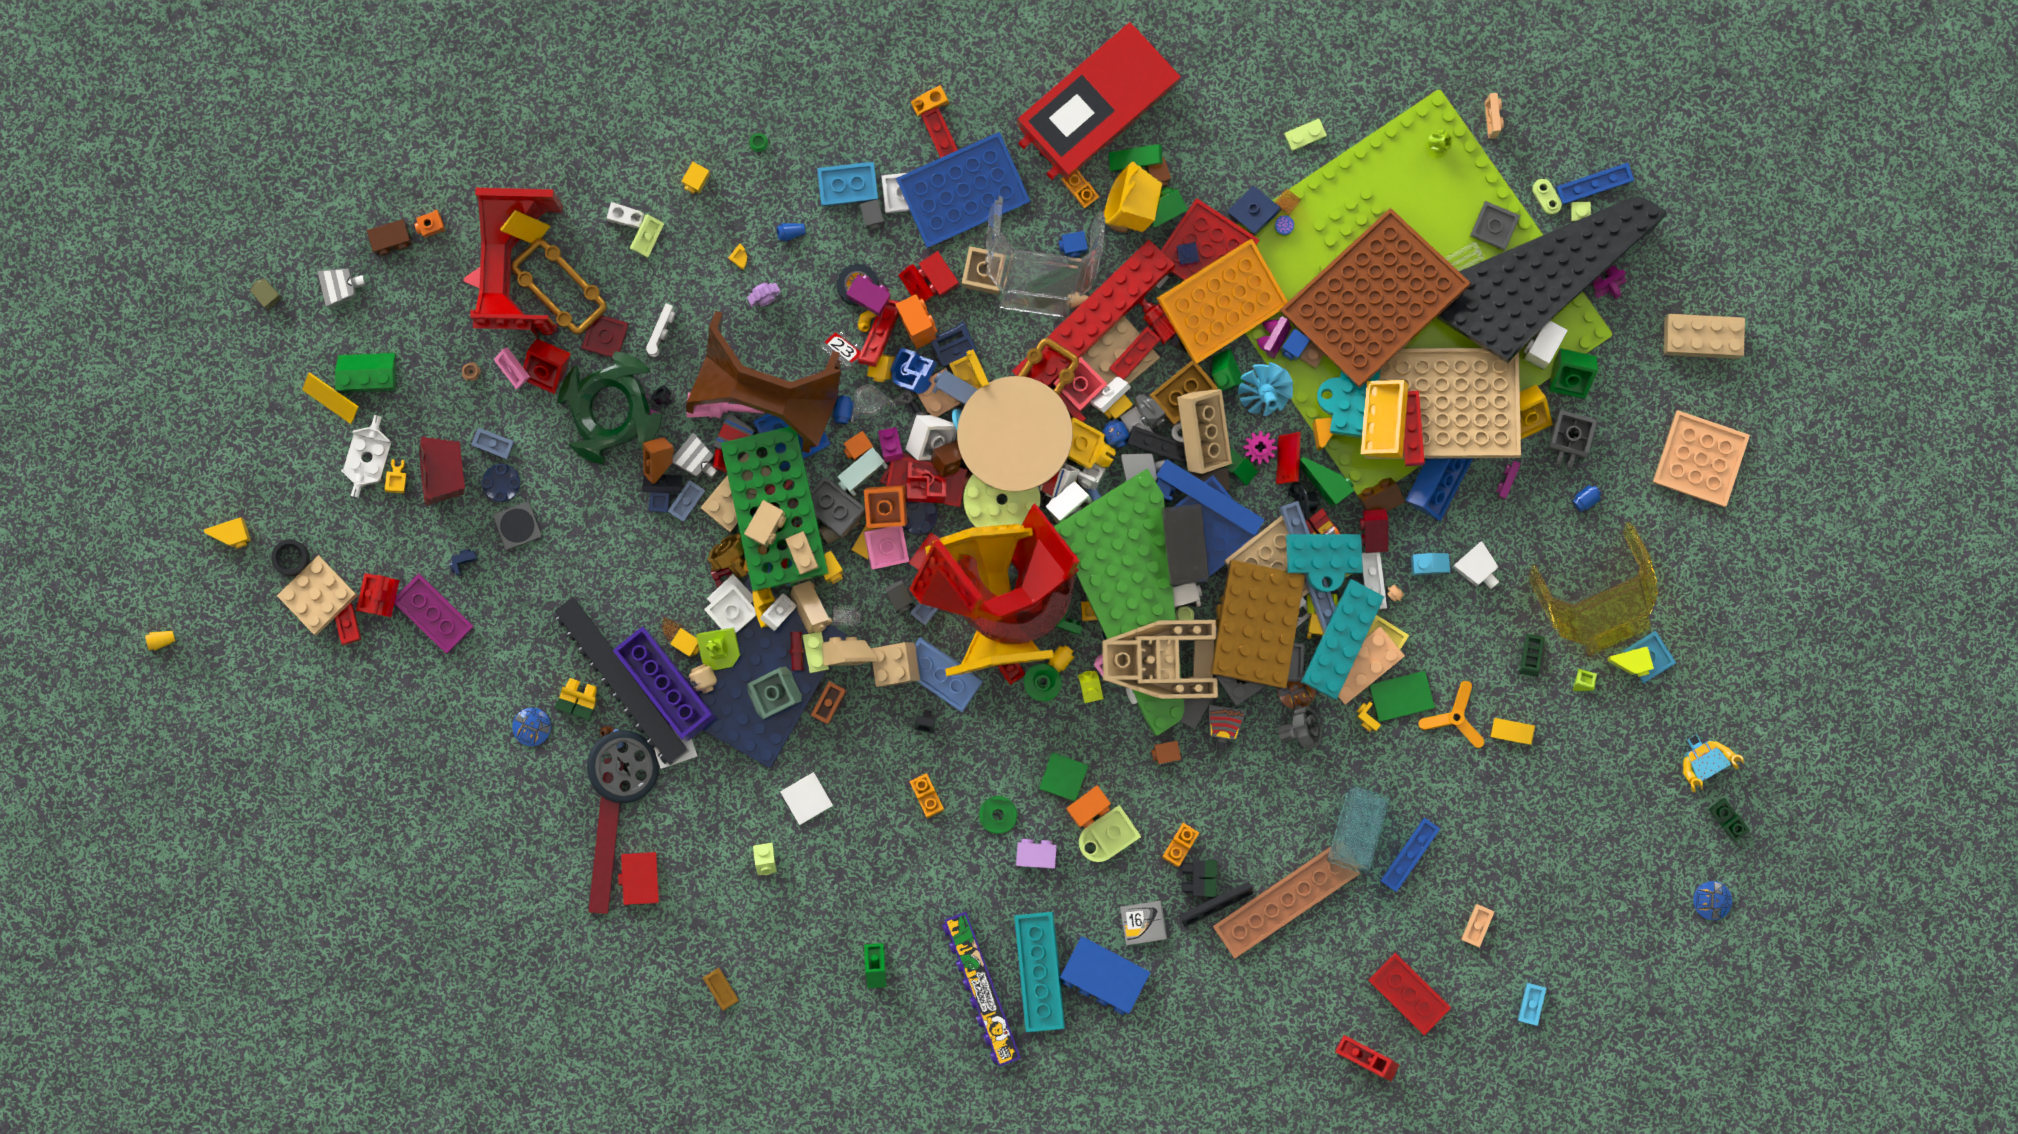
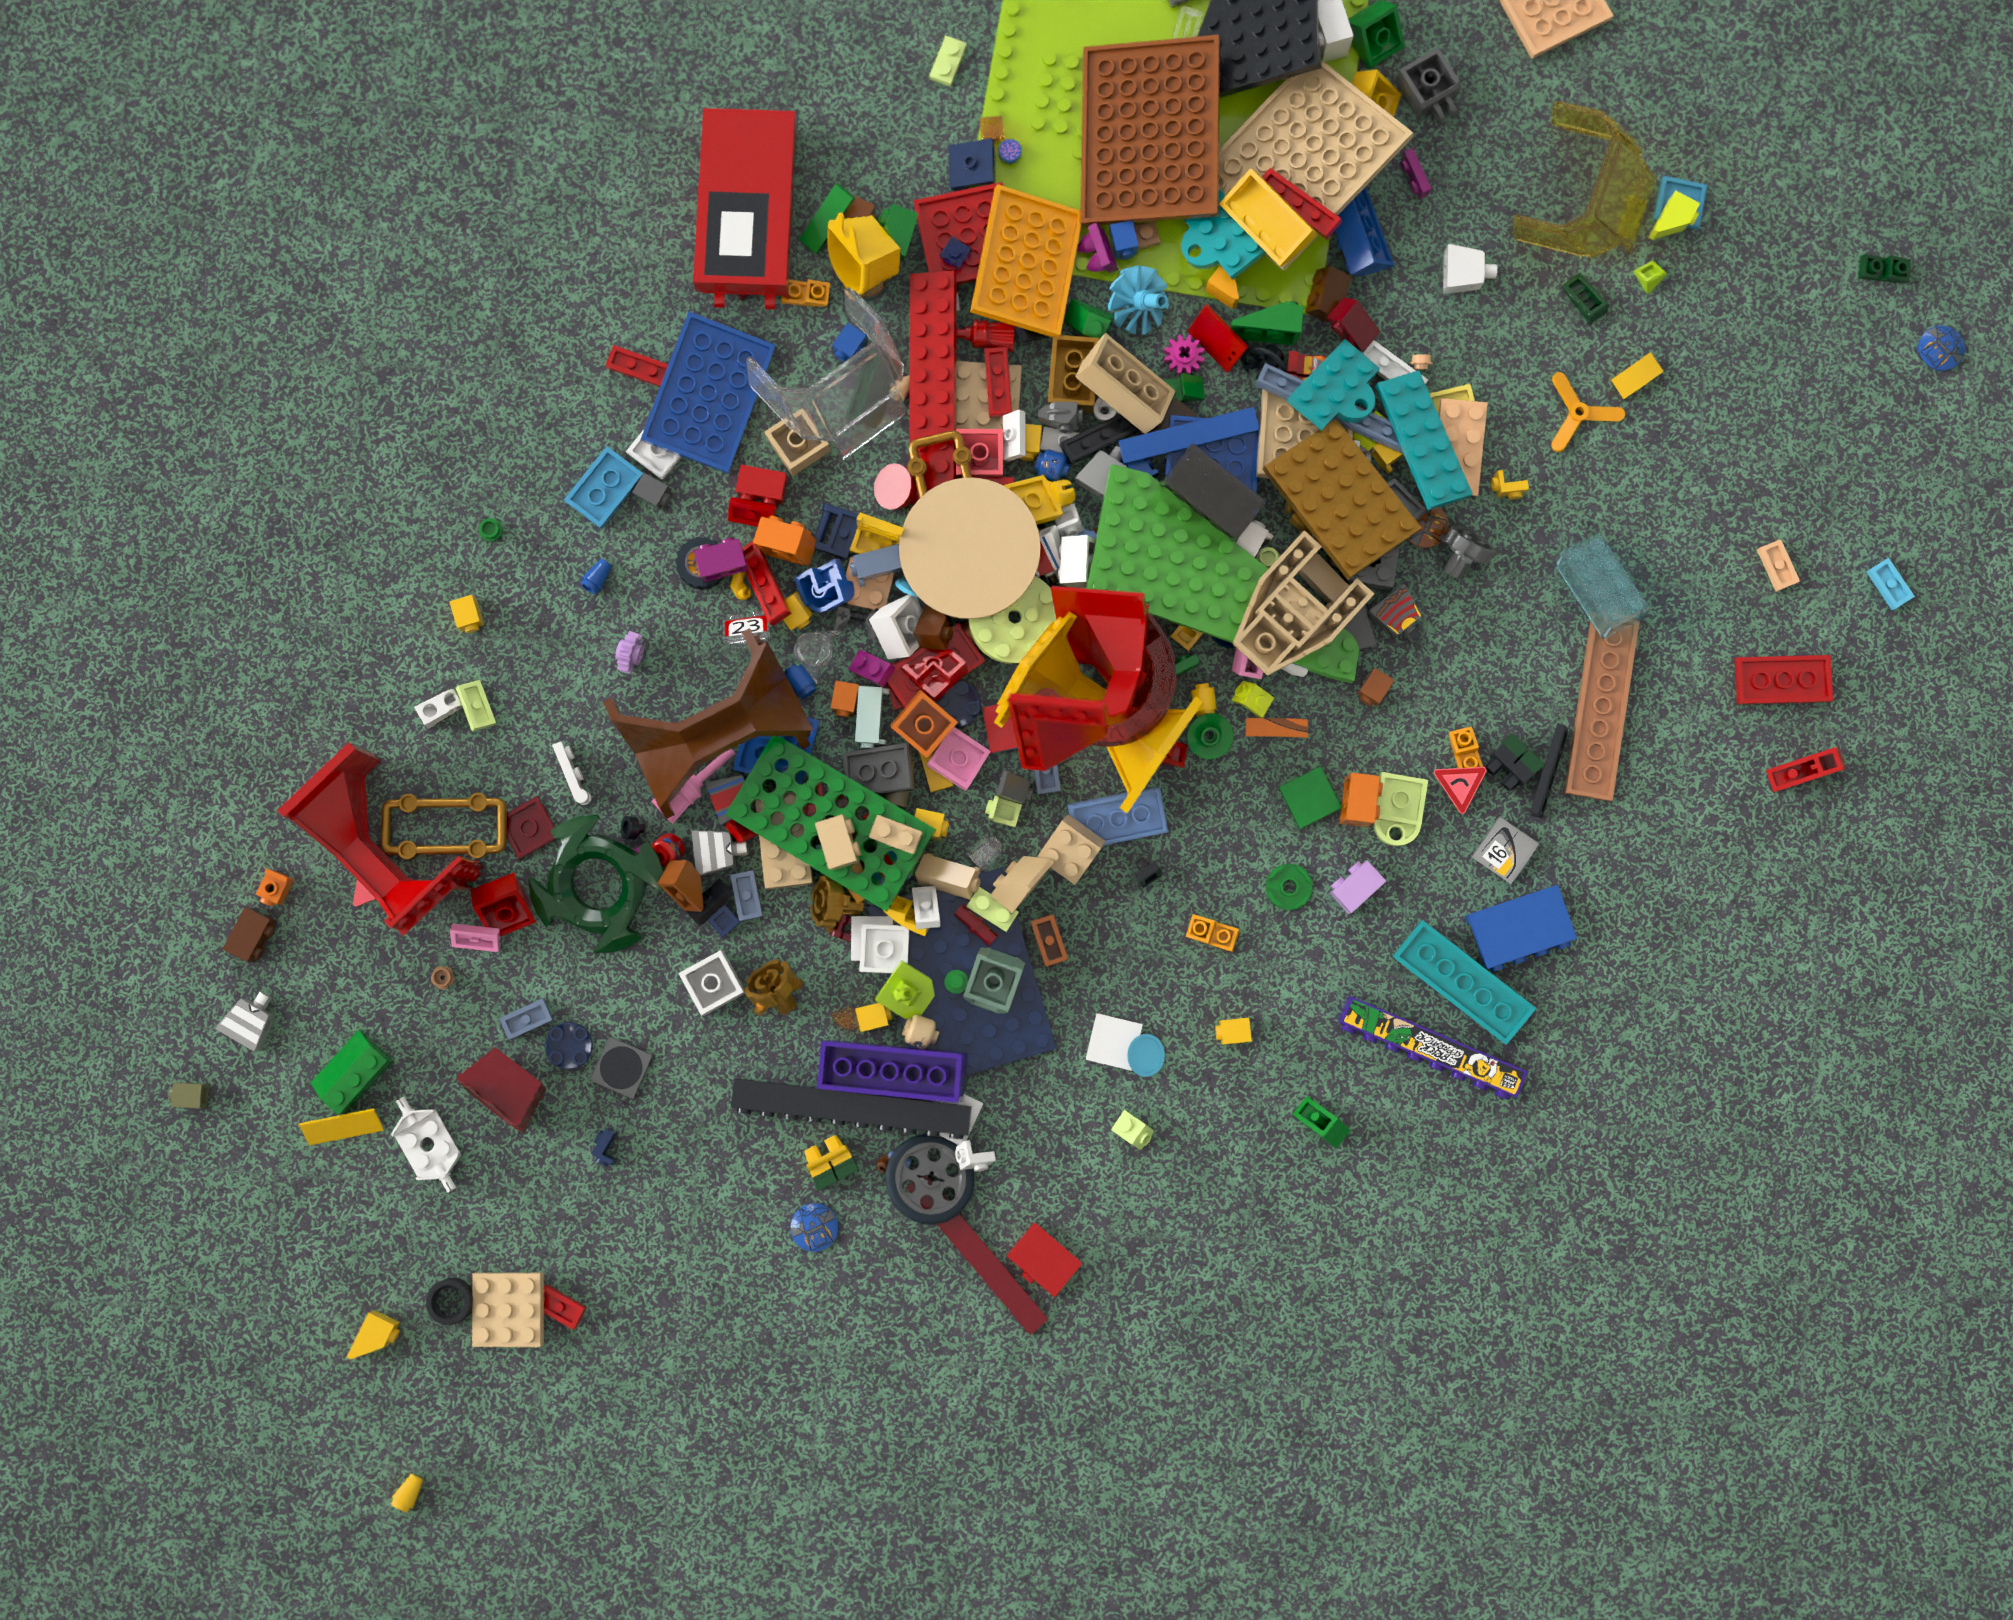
camera: 45 degrees left, 0 degrees up
(377, 595) = (561, 1253): red plate -> none
(396, 480) = (473, 1137): yellow plate -> none
(433, 613) = (626, 1219): magenta plate -> none
(524, 227) = (359, 804): yellow piece -> none
(616, 530) = (712, 983): none -> white brick
(647, 568) = (773, 987): none -> pearl gold piece
(659, 784) = (978, 1161): none -> white bracket
(670, 429) = (668, 848): none -> red head
(720, 989) = (1212, 1281): pearl gold tile -> none
(739, 257) = (575, 643): yellow tile -> none
(752, 671) = (956, 981): none -> green plate
(816, 824) = (1146, 1055): none -> medium azure piece
(879, 862) = (1233, 1031): none -> yellow brick
(880, 603) = (1003, 811): none -> yellowish green bracket
(930, 100) = (601, 346): light orange leg -> none
(1012, 353) = (894, 487): none -> tile
(1087, 717) = (1277, 727): none -> orange sticker
(1157, 858) = (1460, 784): none -> piece
(1401, 696) = (1516, 441): green tile -> none
(1410, 854) = (1662, 564): blue plate -> none
(1430, 563) = (1423, 309): medium azure slope -> none
(1587, 498) = (1494, 124): blue brick -> none
(1706, 760) = (1818, 236): torso -> none

